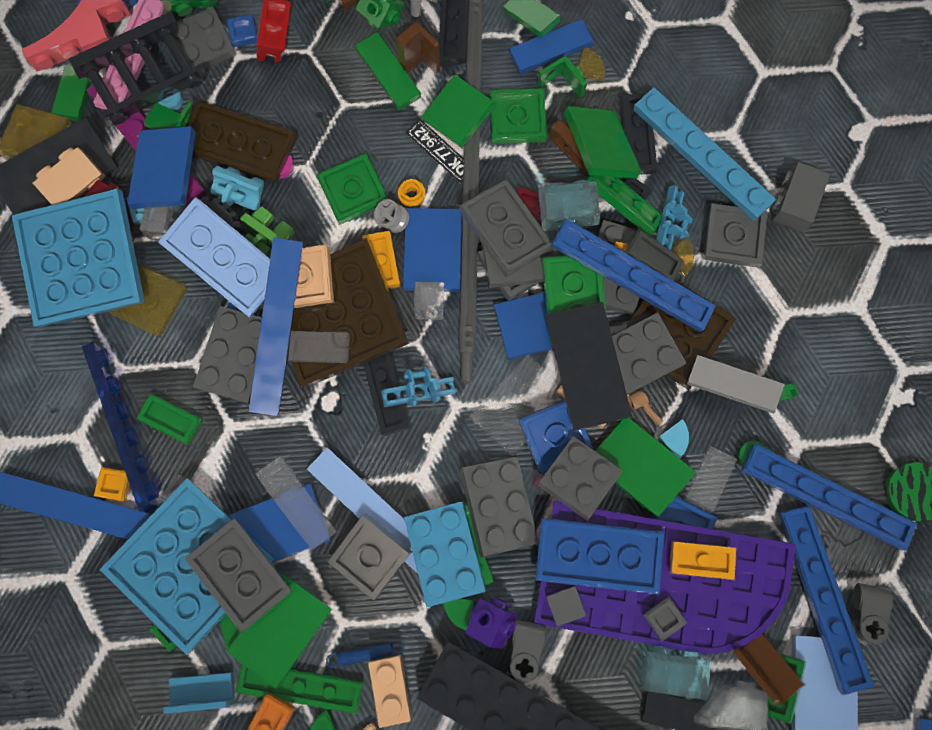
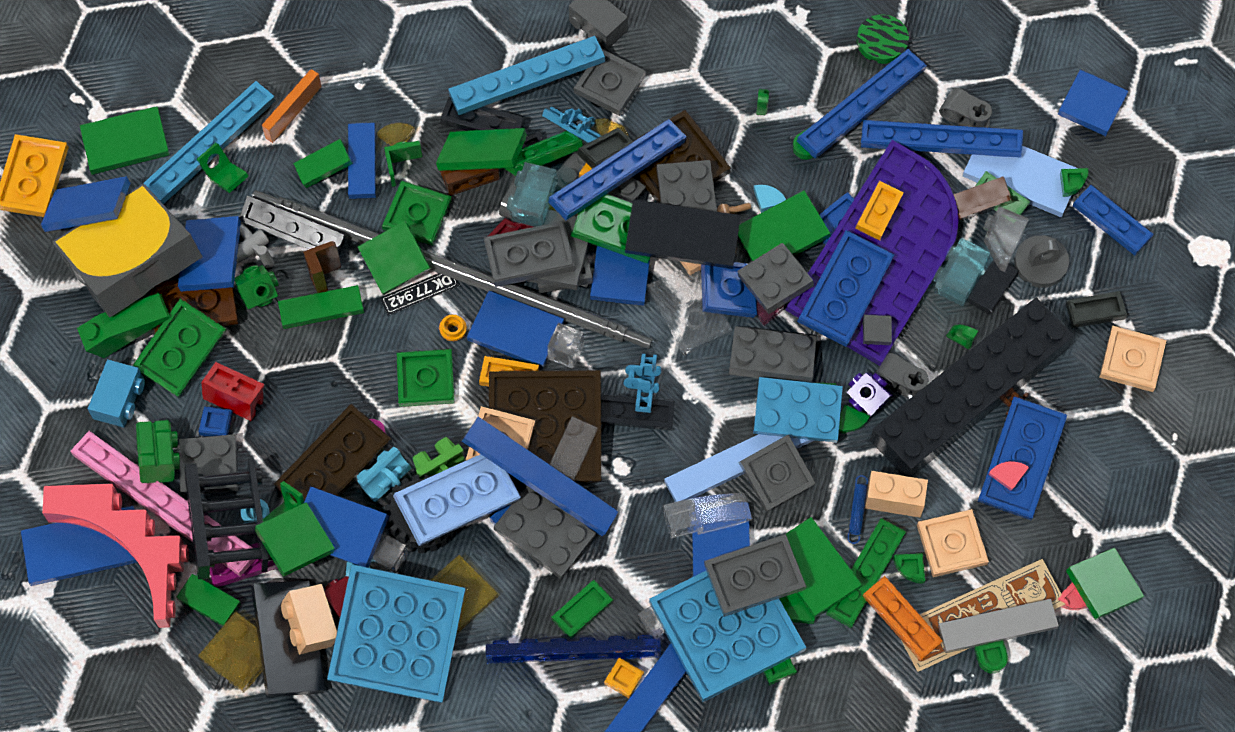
camera: 70 degrees left, 10 degrees down
(129, 131) = (294, 539): none -> green tile
(200, 692) = (841, 655): dark azure panel -> none
(384, 216) = (465, 351): light grey wheel -> none
(601, 699) = (963, 335): none -> green tile
(664, 618) = (915, 259): dark grey tile -> none
(710, 479) = (817, 187): clear tile -> none
(736, 384) = (742, 130): light grey tile -> none

